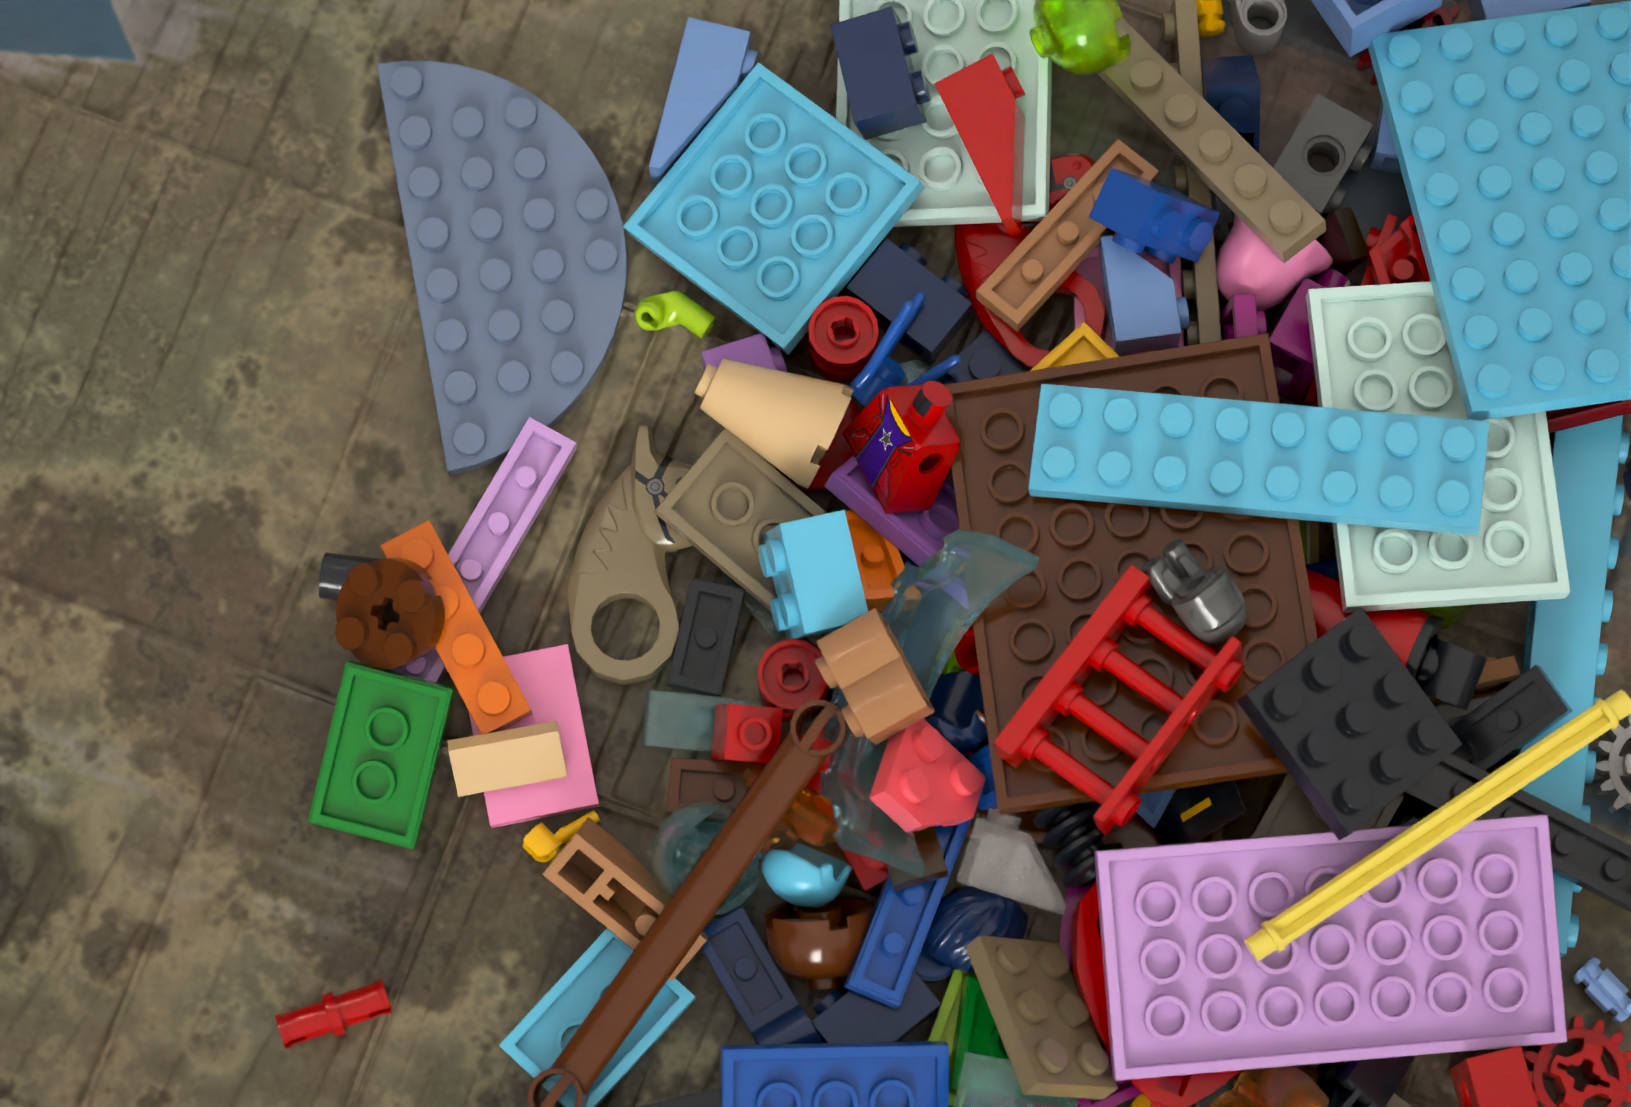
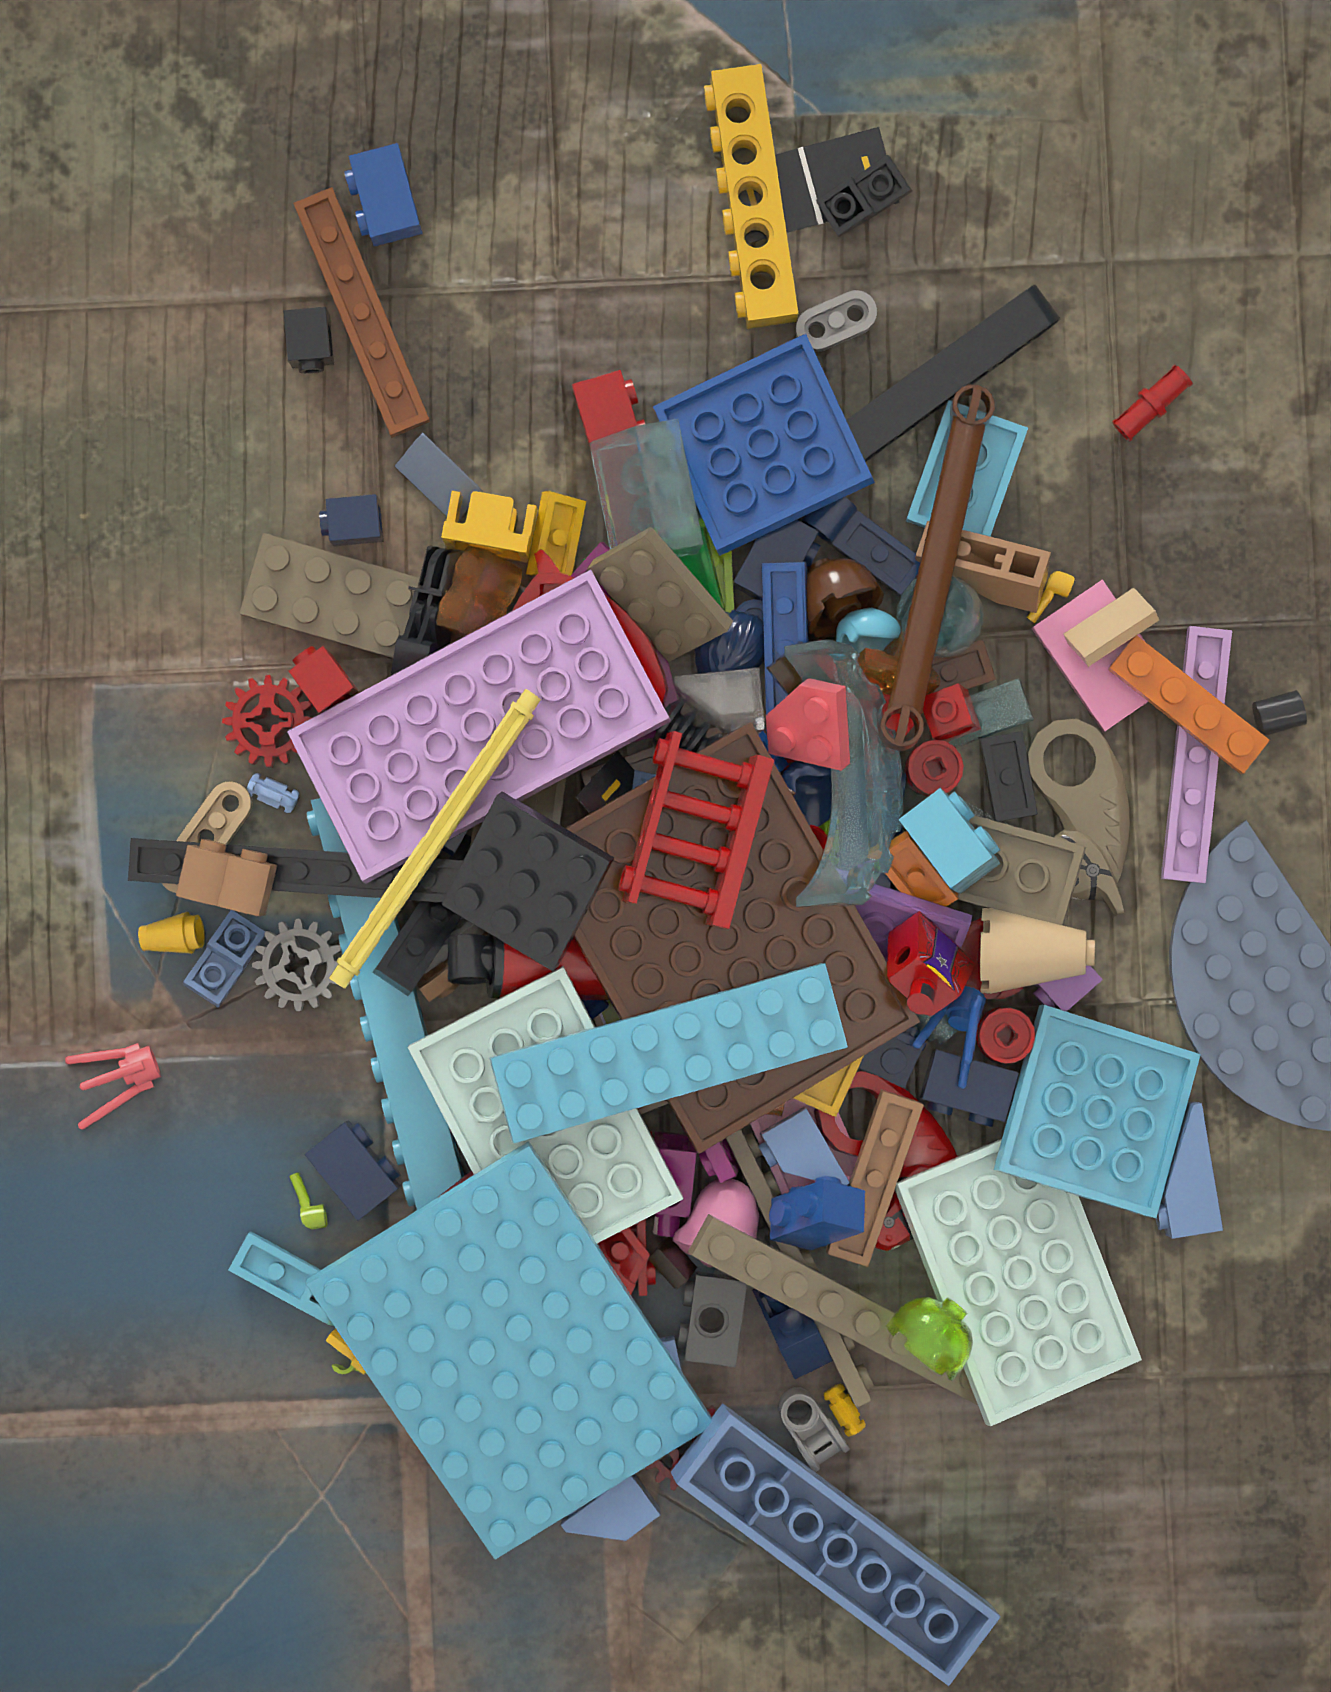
camera: 155 degrees right, 10 degrees up
(360, 619) = (1253, 674): reddish brown plate -> none
(381, 754) = (1201, 595): green tile -> none
(673, 309) = (1137, 1009): lime arm -> none
(873, 677) = (878, 776): medium nougat brick -> none
(880, 73) = (1063, 1244): dark blue brick -> none
(992, 129) = (962, 1227): red slope -> none
(1202, 598) = (671, 928): dark grey piece -> none

